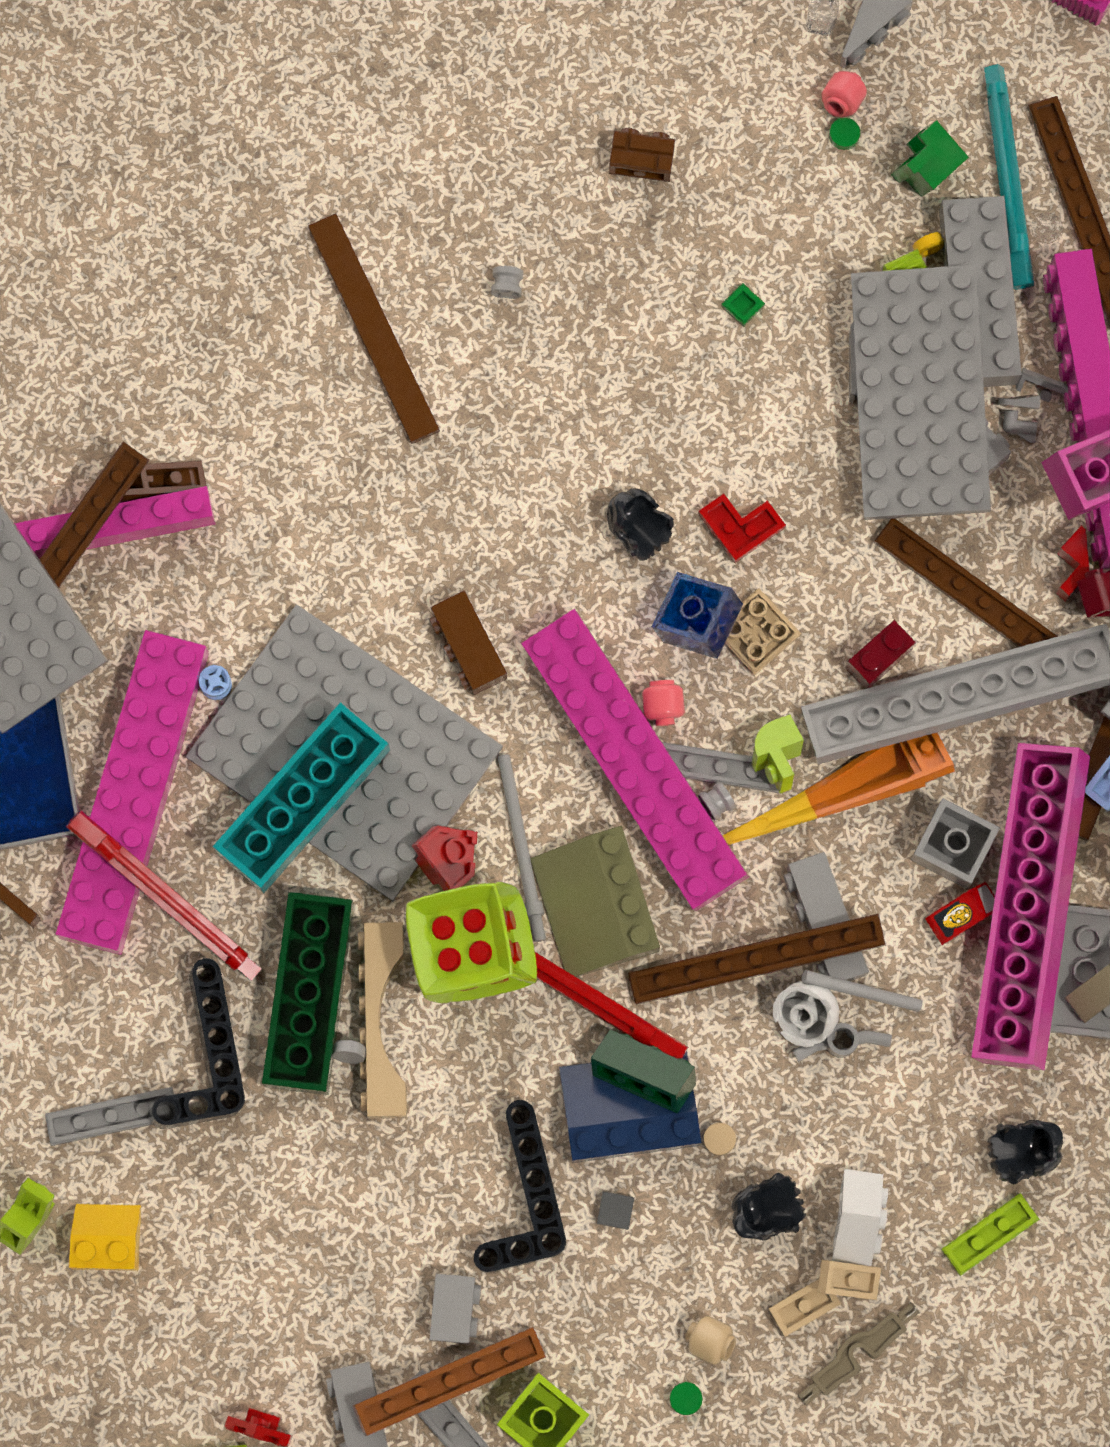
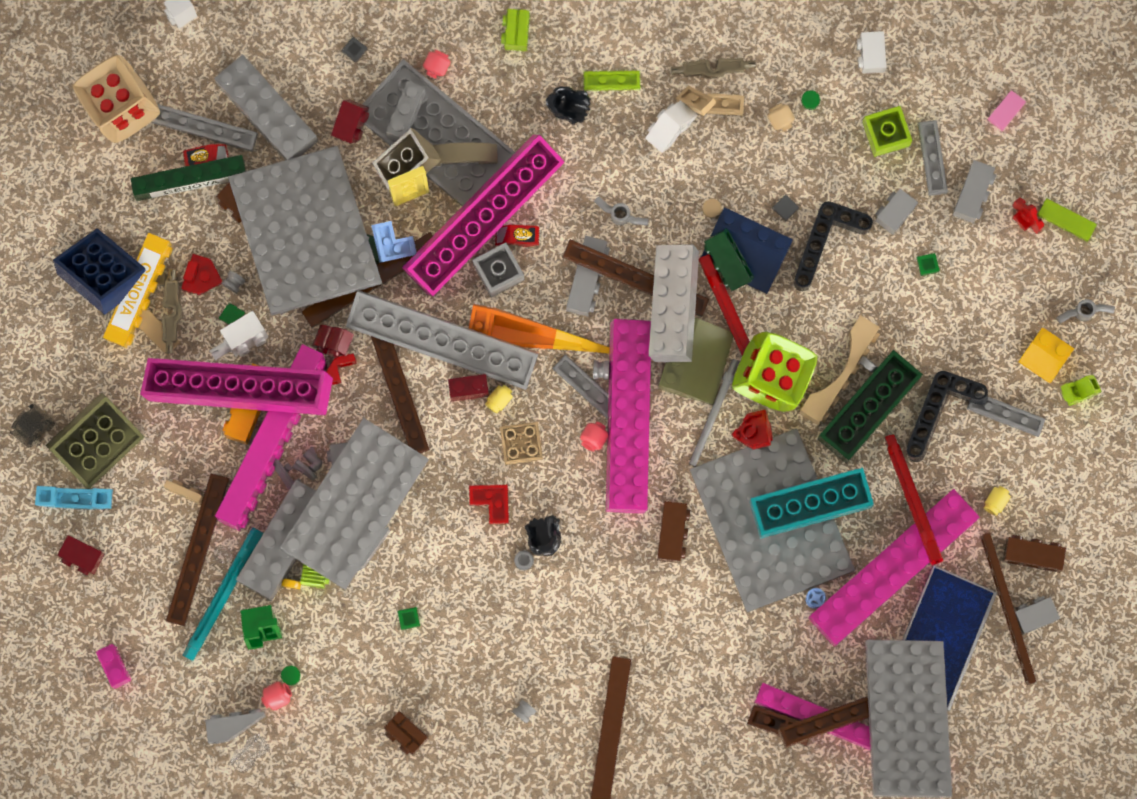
camera: 145 degrees left, 0 degrees up
(48, 980) = (997, 500): none -> light yellow brick
(77, 1353) = (1082, 317): none -> light grey piece
(358, 1262) = (927, 264): none -> green tile
(449, 1381) = (921, 177): dark orange plate -> none
(644, 477) = (524, 560): none -> light grey tile
(677, 948) = (674, 303): none -> light grey brick
(697, 615) = (547, 466): clear blue brick -> none
(768, 1208) = (712, 157): black hair -> none
(773, 747) = (556, 376): lime brick -> none
(806, 1013) = (629, 236): white cylinder -> none
(828, 669) = (499, 398): none -> light yellow brick
(862, 990) = (595, 229): light grey bar -> none

